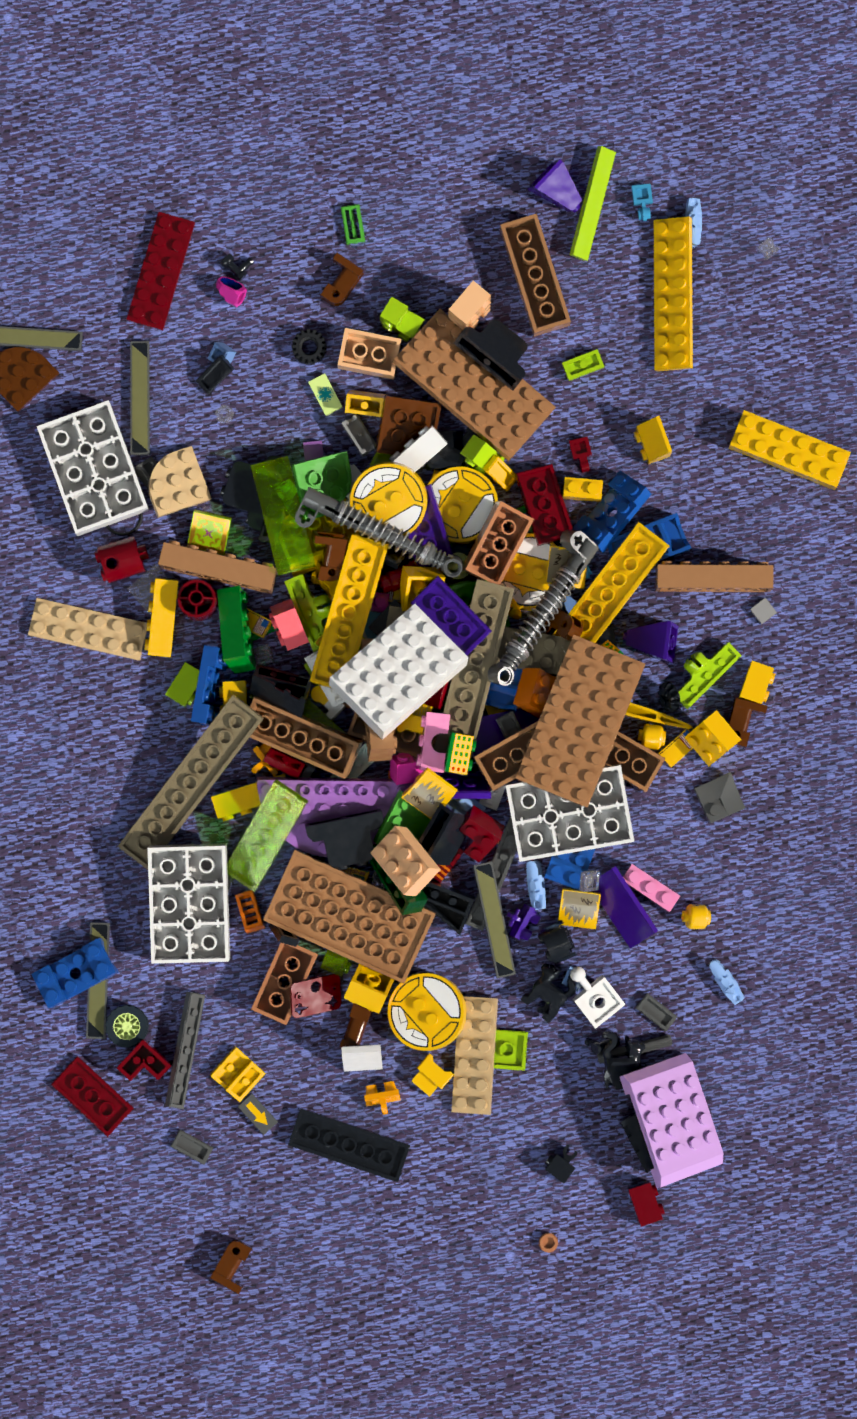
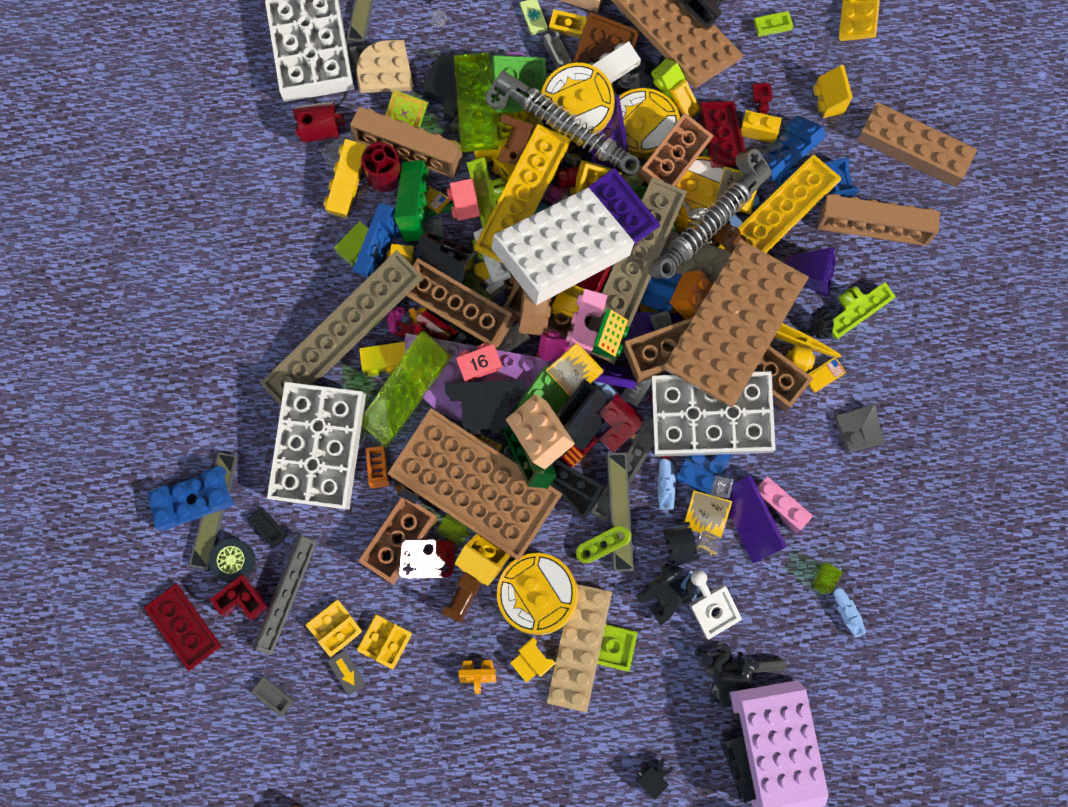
camera: 10 degrees right, 10 degrees down
(88, 629) = (275, 183): tan plate -> none
(154, 988) = (267, 527): none -> black tile
(237, 761) = (394, 317): none -> dark pink arm
(262, 772) = (413, 329): none -> dark red plate
(287, 1079) = (384, 641): none -> yellow slope
(335, 802) = (479, 362): none -> coral brick
(349, 1145) = (434, 721): black plate -> none
(361, 1057) = (462, 629): white tile -> none
(475, 956) = (595, 544): none -> lime plate
(520, 920) = (645, 516): dark purple hips -> none
(584, 936) = (708, 543): none -> clear plate
(656, 1012) = (772, 633): dark grey tile -> none
(696, 916) = (825, 541): yellow head -> none
(700, 953) = (826, 578): none -> clear neon green brick
(712, 738) = (862, 367): yellow brick -> none
(741, 716) = (885, 367): reddish brown piece -> none
(747, 484) = (917, 145): none -> medium nougat brick
(756, 683) = (908, 325): yellow brick -> none
(763, 611) = (919, 261): light grey tile -> none
(789, 450) = (961, 120): yellow brick -> none

